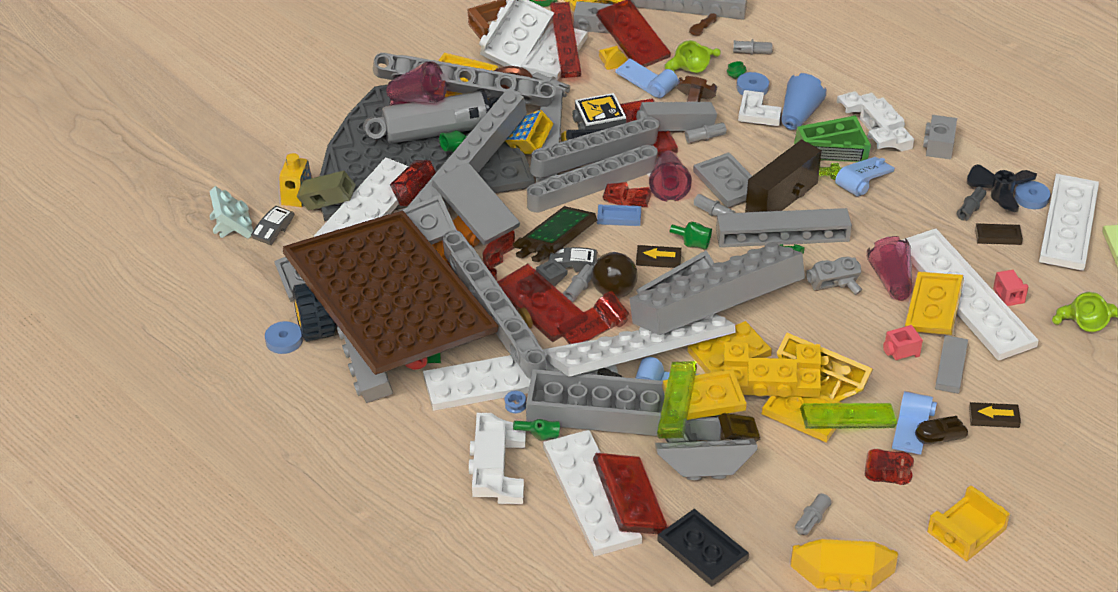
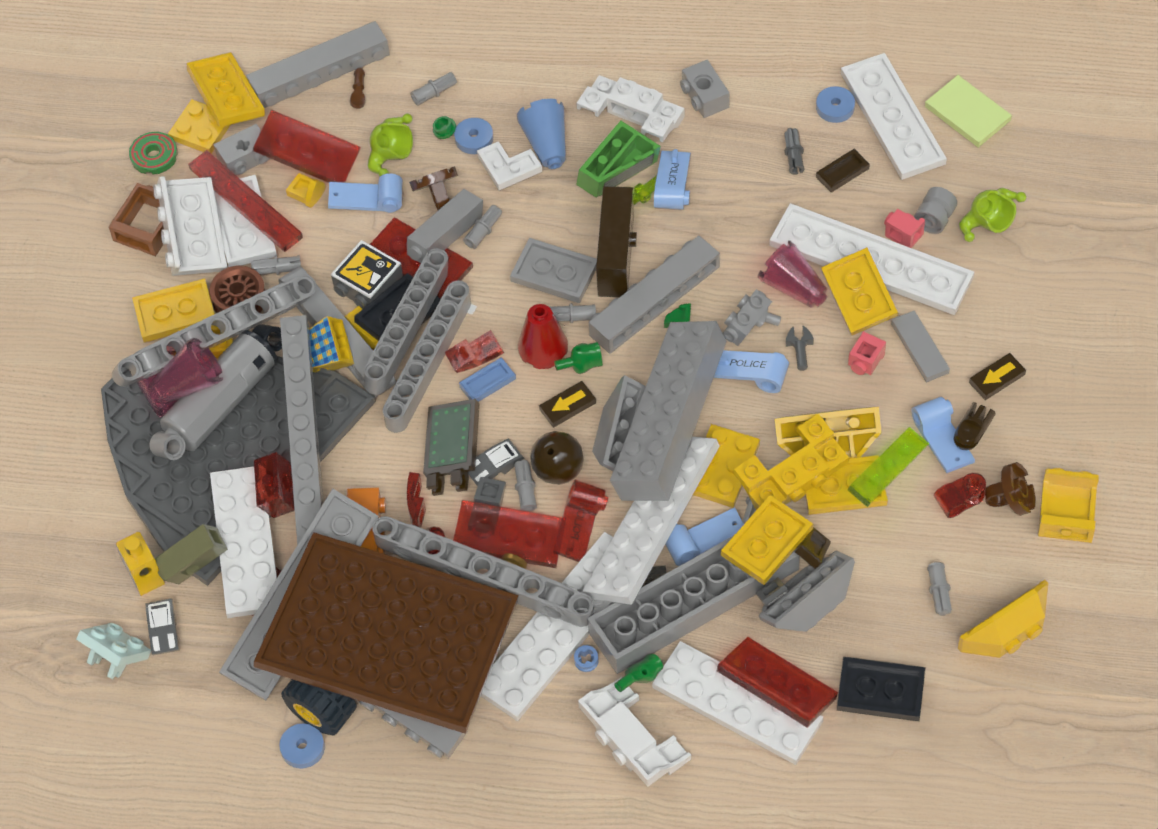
camera: 35 degrees left, 15 degrees up
(451, 140) = (260, 404): green piece -> none
(476, 203) = (362, 470): light grey tile -> none
(669, 177) = (500, 303): clear pink cone -> none
(677, 203) = (542, 338): none -> red cone
(677, 400) = (756, 563): clear neon green tile -> none
(815, 309) = (765, 369): none -> light blue door
(856, 308) = (799, 345): none -> dark grey bar
(932, 484) = (1012, 490): none -> reddish brown tile
(1001, 183) = (806, 113): black piece -> none
(1045, 288) = (936, 209): none -> light grey wheel

